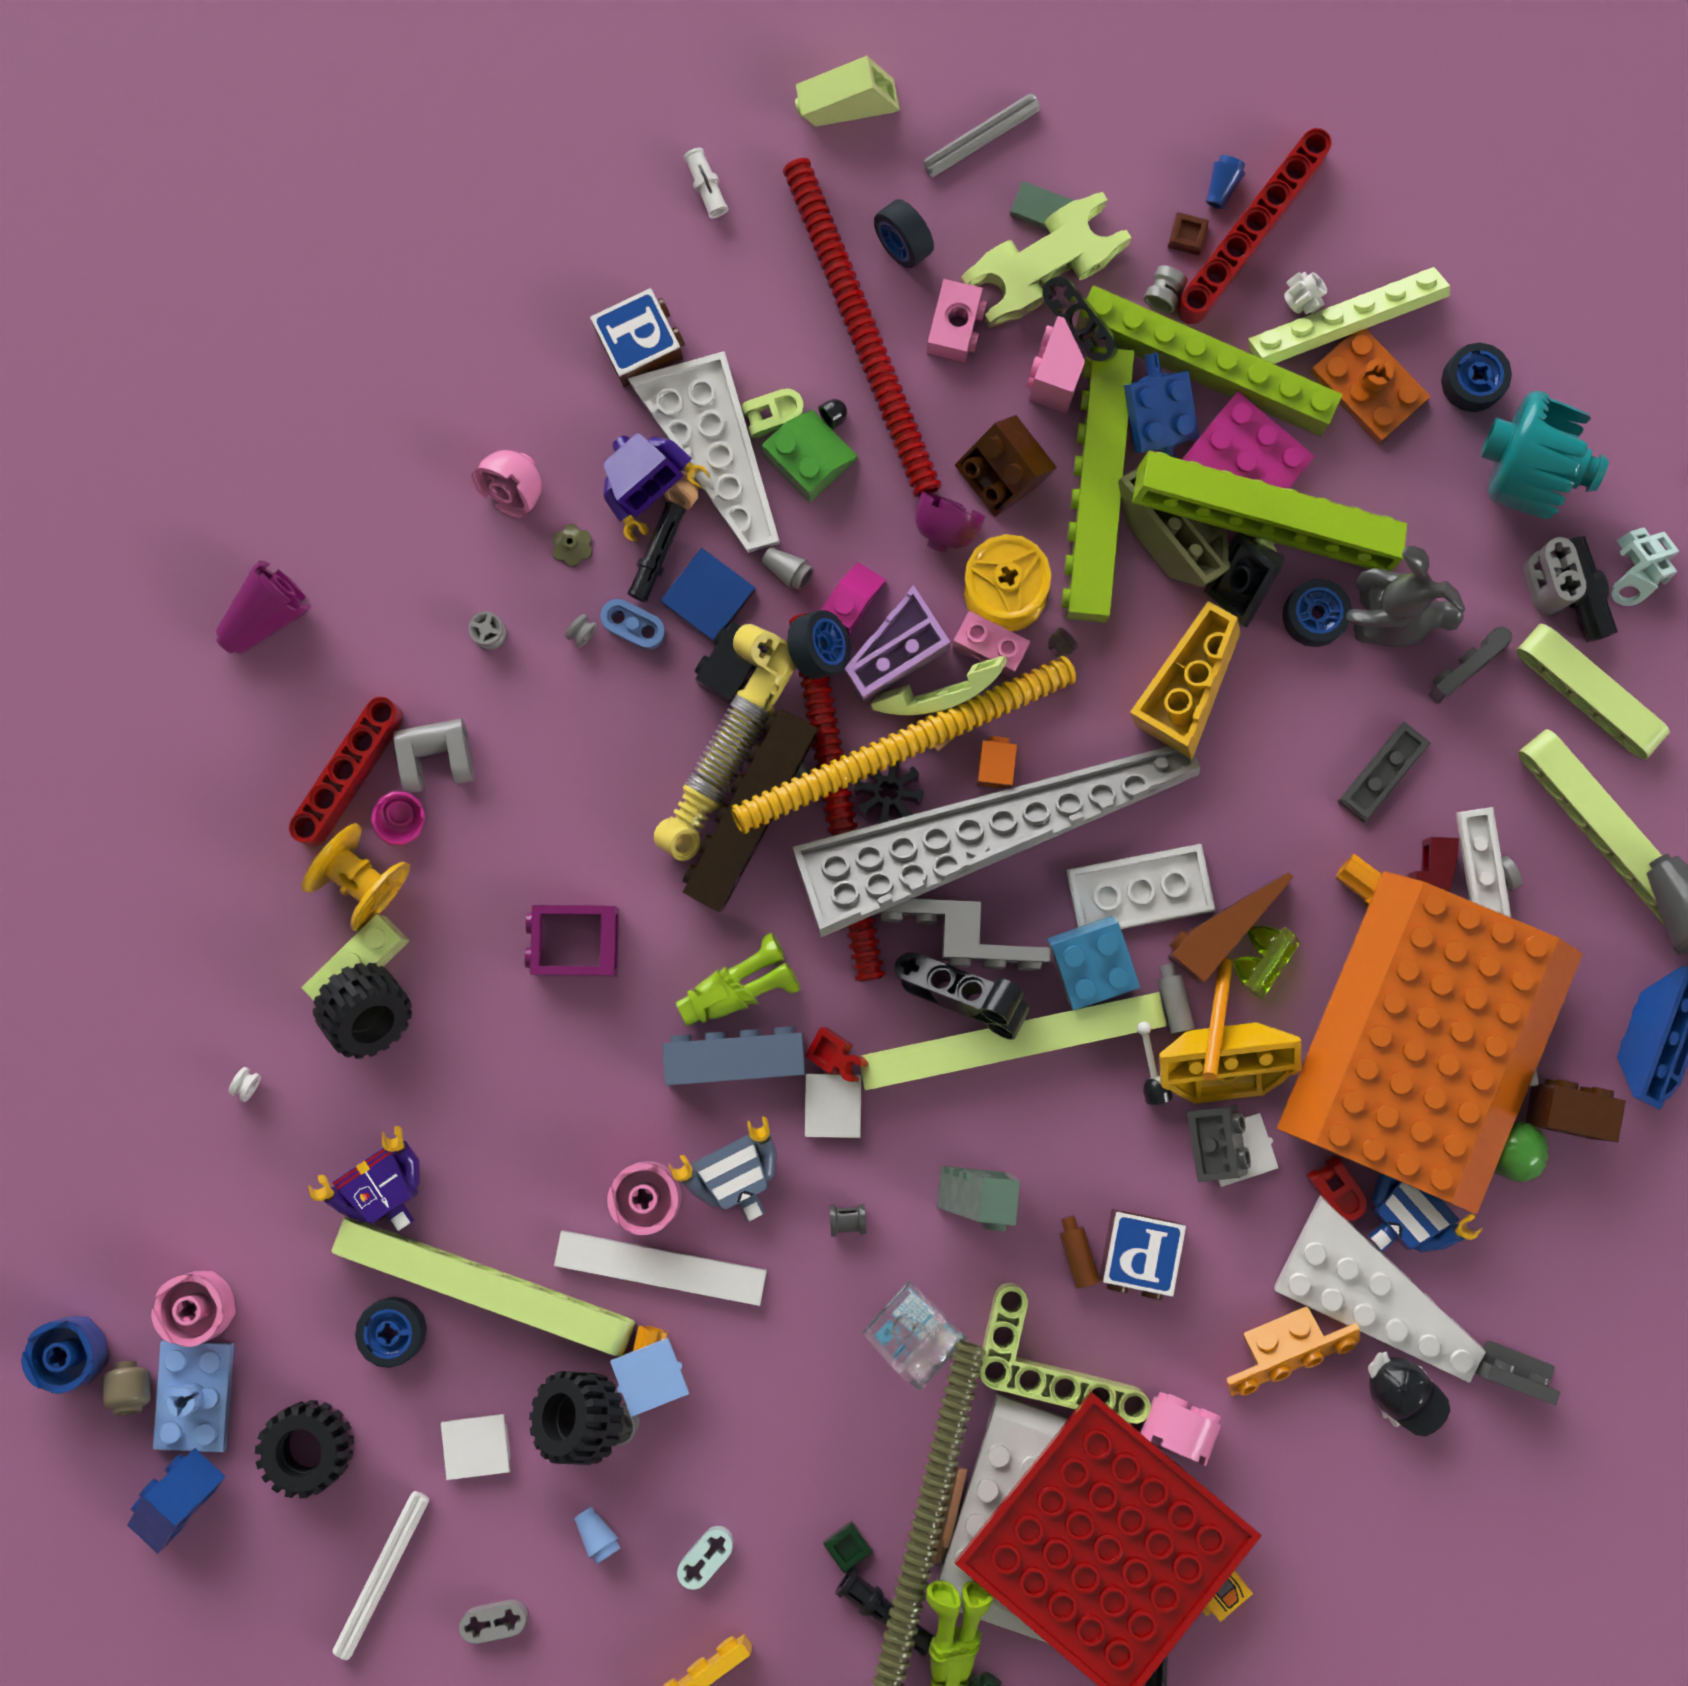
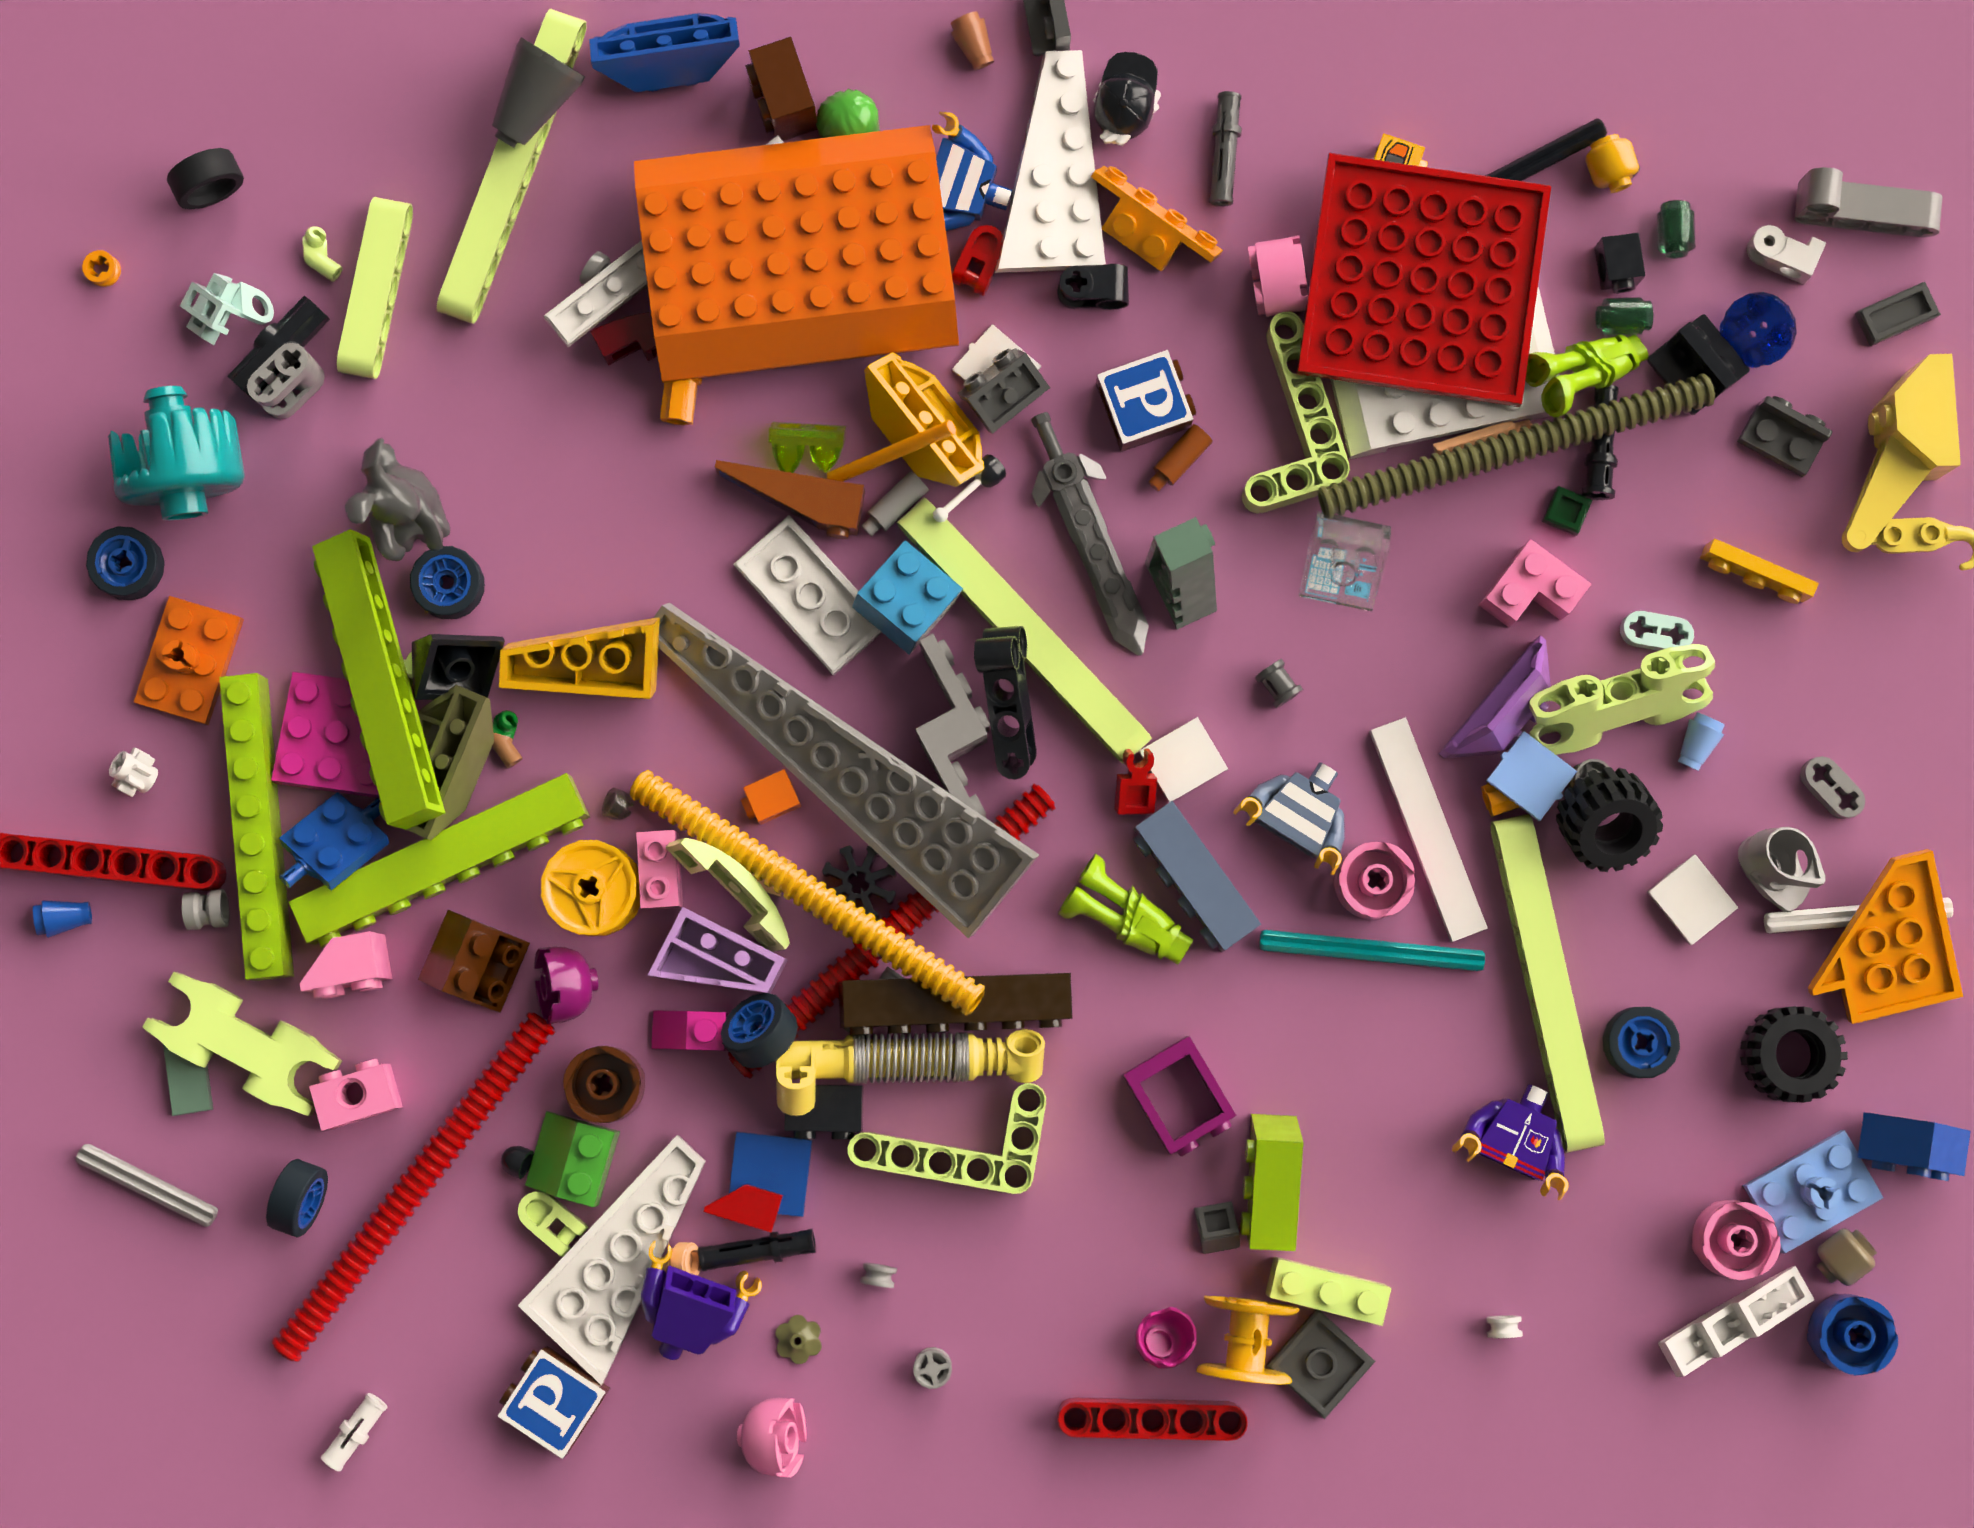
camera: 130 degrees left, 0 degrees up
(135, 1269) = (1736, 1321): none -> white slope
(307, 926) = (1321, 1363): none -> dark grey tile
(336, 1588) = (1895, 946): none -> light orange wing
(362, 1010) = (1367, 1252): black tyre -> none
(429, 740) = (1072, 1355): light grey connector -> none
(457, 1530) = (1774, 866): none -> light grey helmet
(458, 910) = (1217, 1227): none -> dark grey slope
(463, 972) = (1272, 1182): none -> lime wedge
(593, 1163) = (1372, 950): none -> teal axle
(632, 745) = (961, 1157): none -> yellowish green beam
(634, 624) = (842, 1228): medium blue plate -> none
(657, 1518) = (1644, 694): none -> yellowish green piece
(692, 562) = (748, 1206): none -> red tile
(718, 1394) = (1505, 709): none -> medium lavender wedge
(790, 569) = (698, 1110): light grey cone -> none
(809, 1483) = (1536, 577): none -> bright pink brick
(847, 94) = (182, 1344): yellowish green slope -> none
(855, 489) = (583, 1091): none -> reddish brown brick
(1058, 1141) = (1089, 533): none -> sword
(1103, 333) = (269, 993): black beam -> none
(1170, 588) = (504, 730): none -> arm
(1188, 233) = (134, 921): copper tile -> none
(1258, 1274) = (1099, 287): none -> black piece
(1328, 1460) = (1226, 134): none -> dark grey pin
(1350, 316) = (133, 717): yellowish green plate -> none
(1384, 771) = (564, 435): dark grey tile -> none
(1471, 663) = (413, 412): dark grey hinge -> none
(1530, 1297) = (973, 39): none -> nougat cone
(1647, 662) = (316, 254): none -> yellowish green arm

